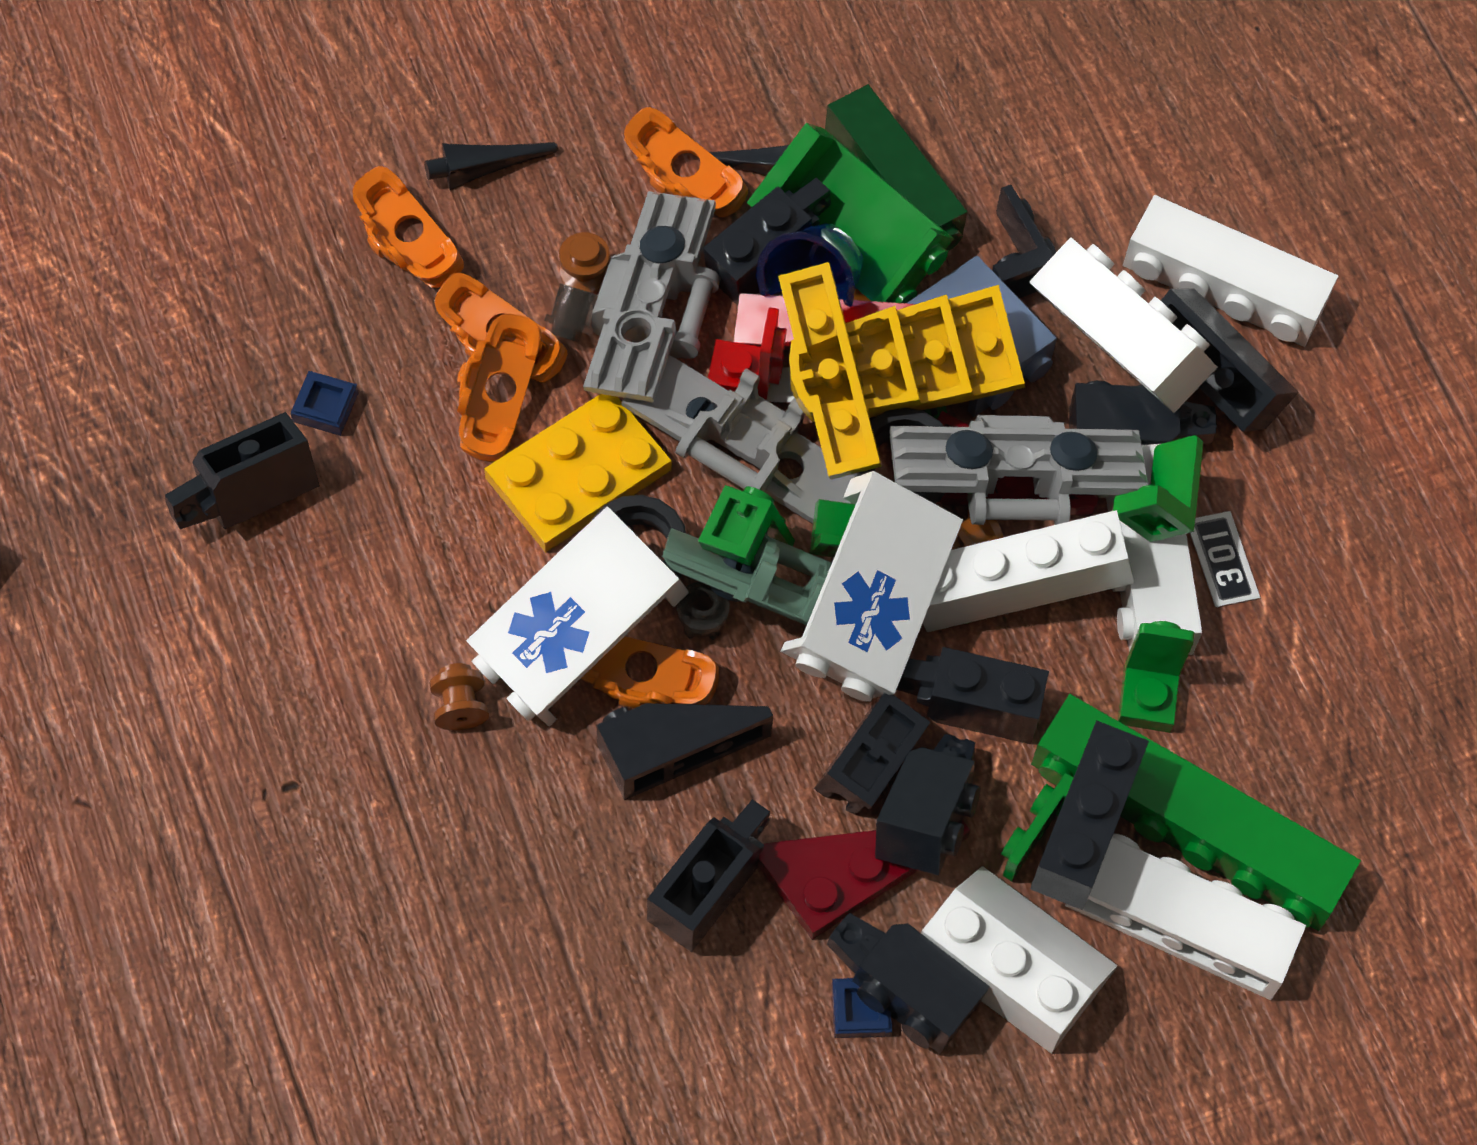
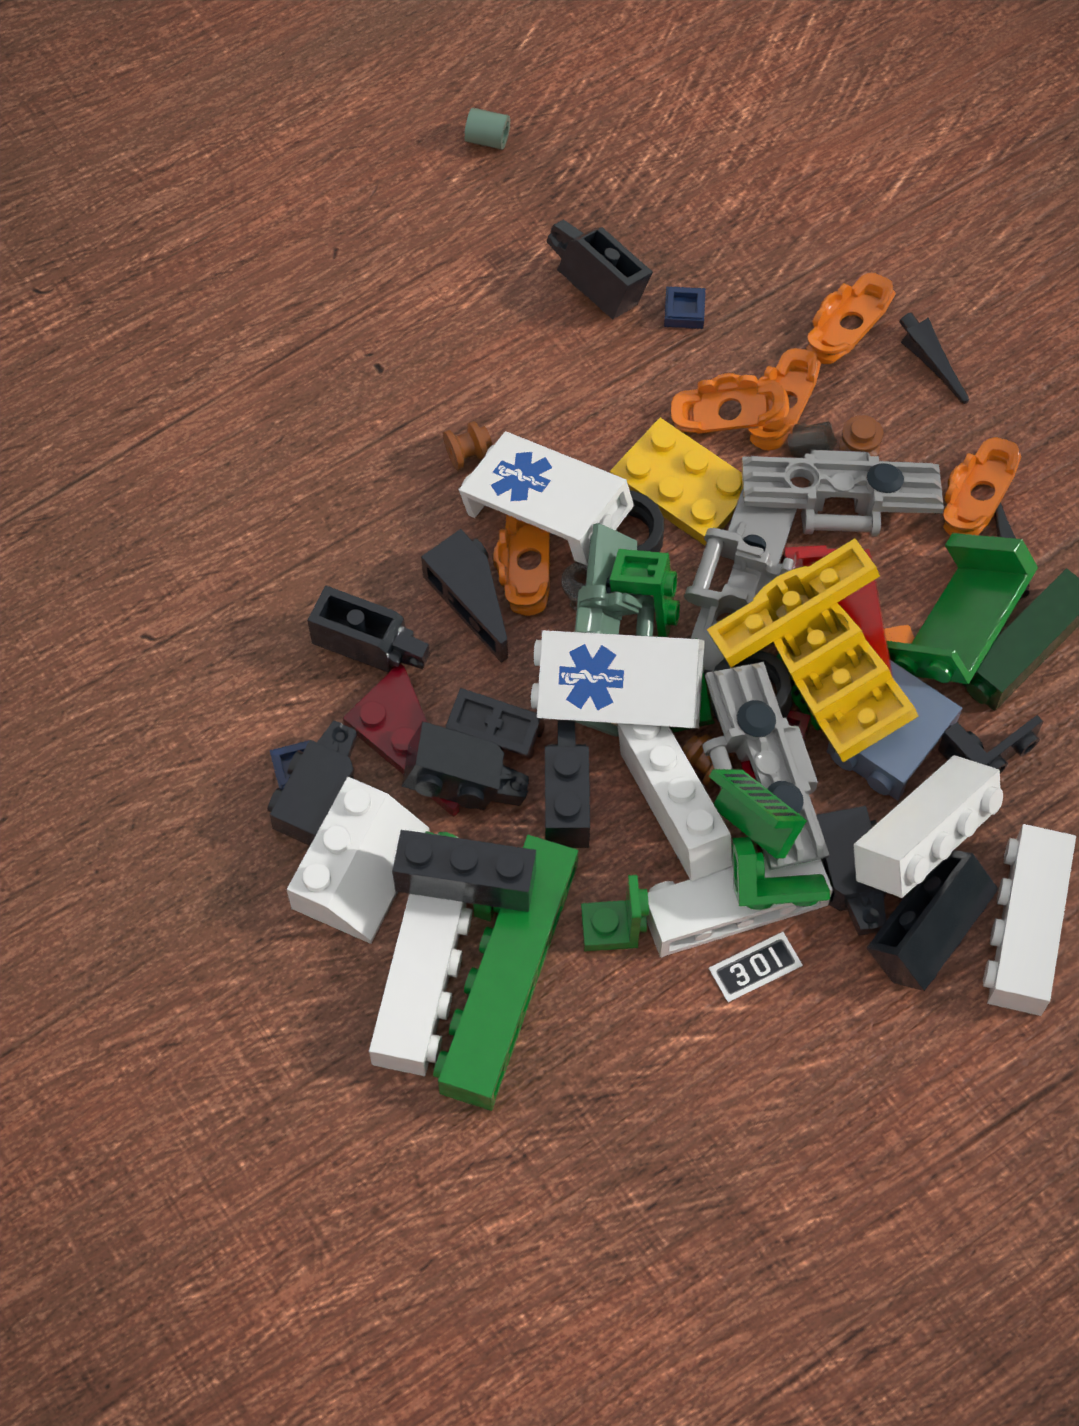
camera: 80 degrees right, 0 degrees up
(738, 247) = (923, 554): black hinge -> none
(807, 249) = (916, 594): clear blue helmet -> none
(1095, 475) = (757, 811): none -> green panel

